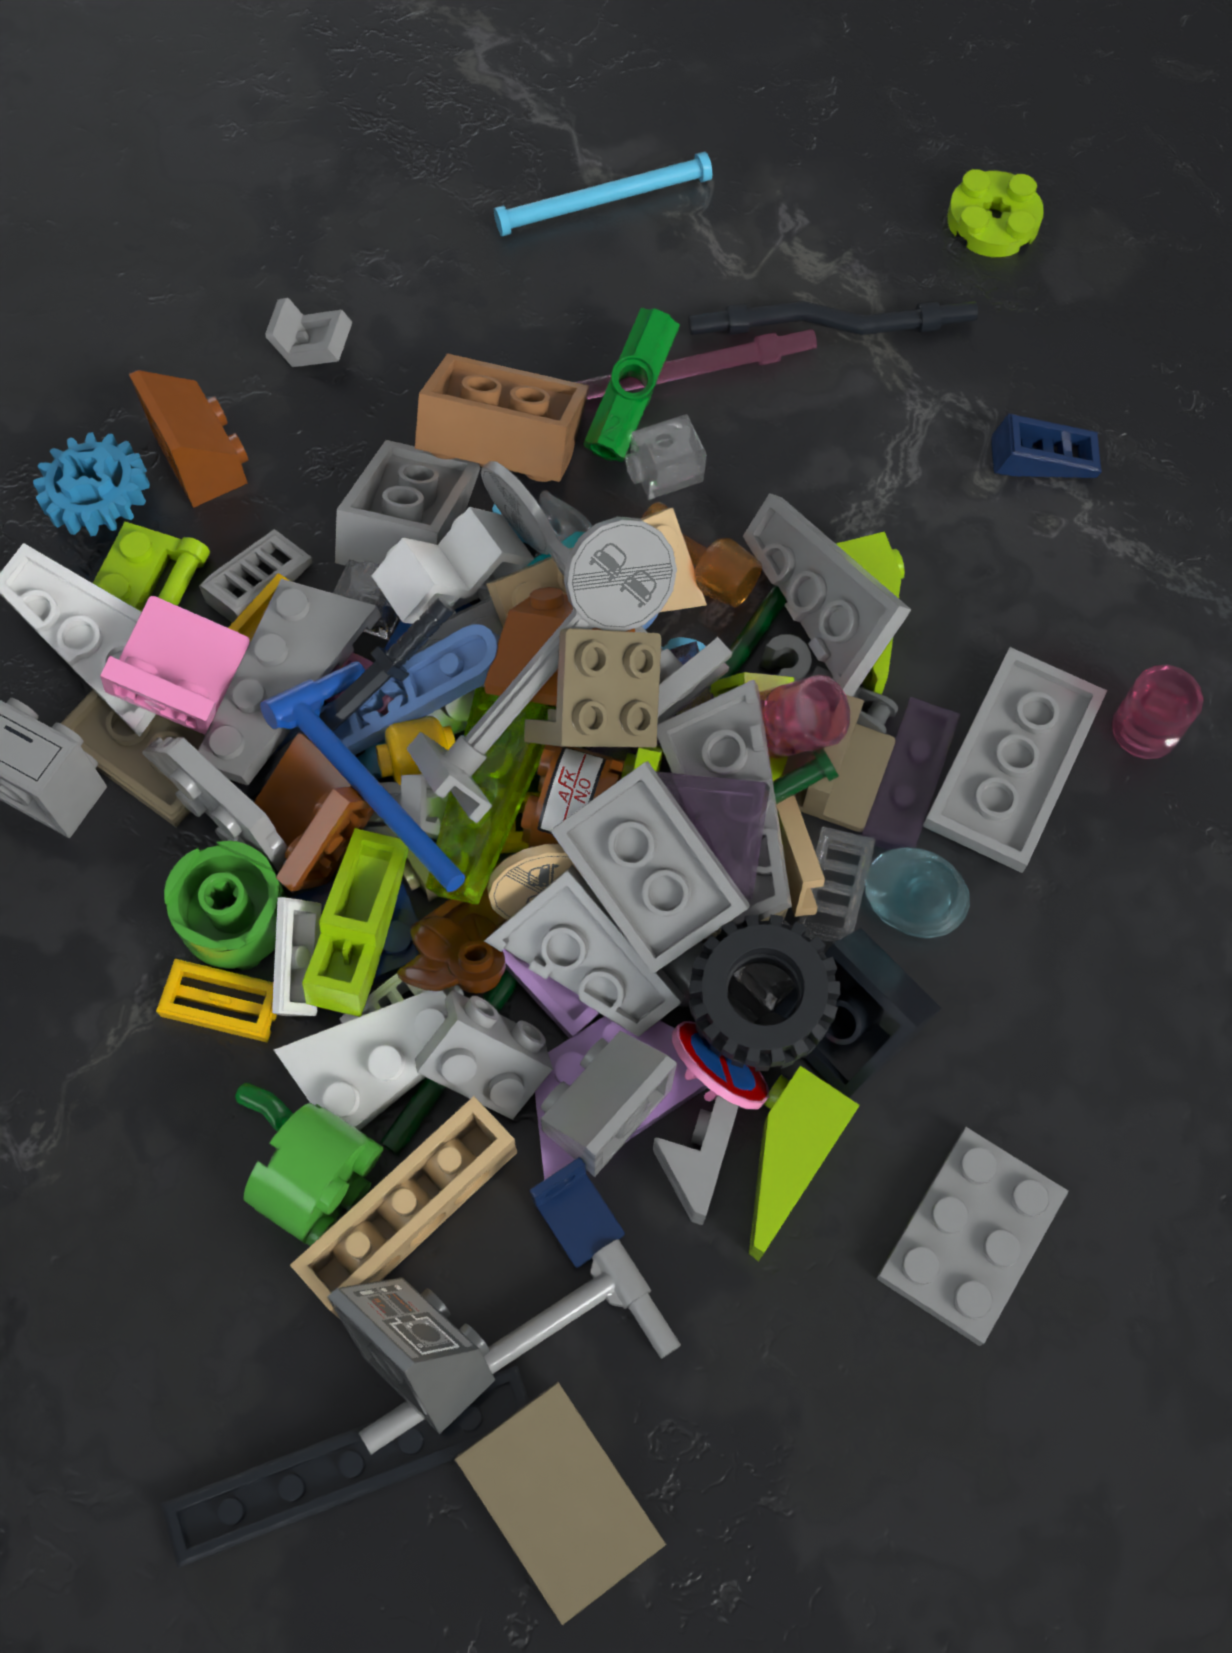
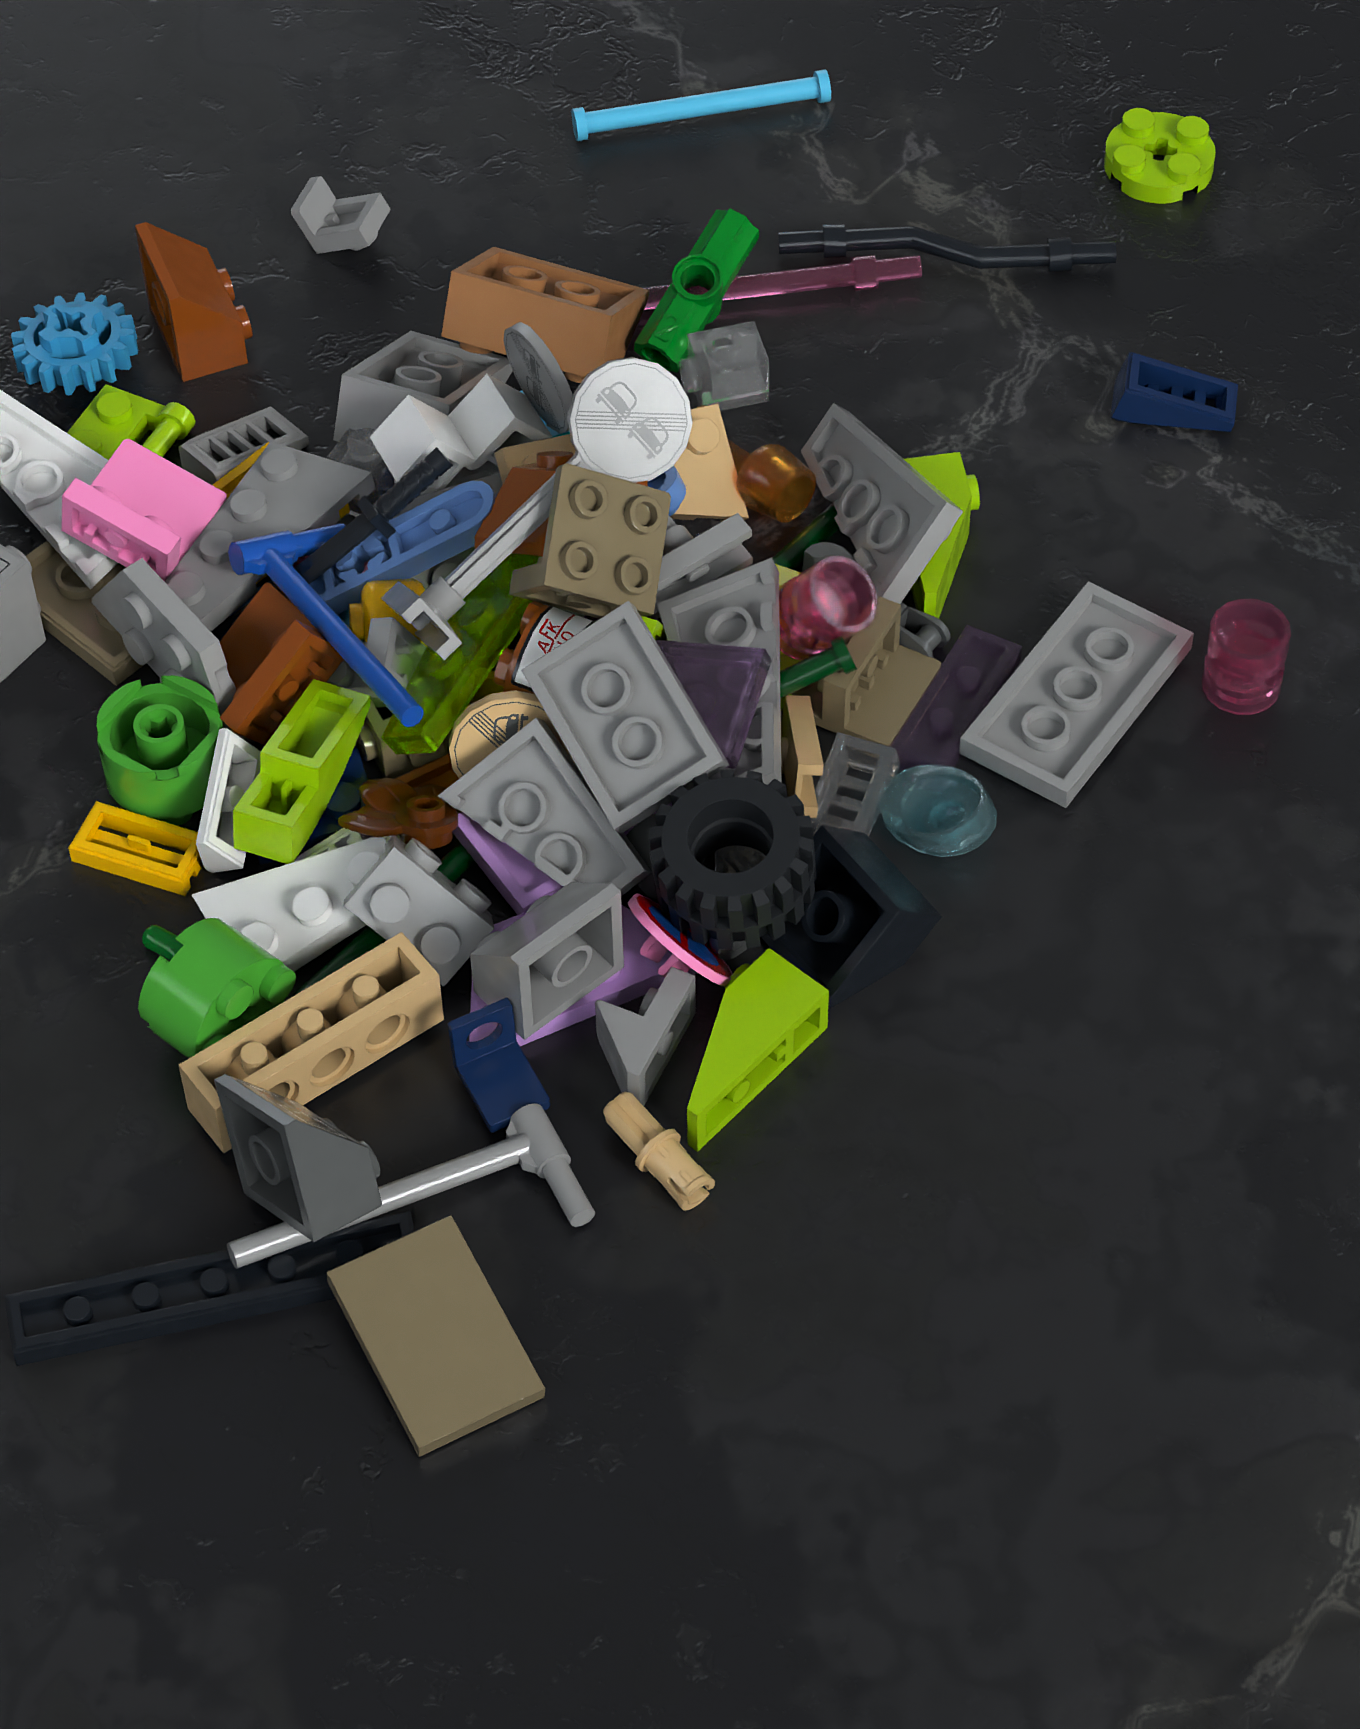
camera: 10 degrees right, 15 degrees down
(728, 1276) = (658, 1151): none -> tan axle
(972, 1236) = (942, 1146): light grey plate -> none

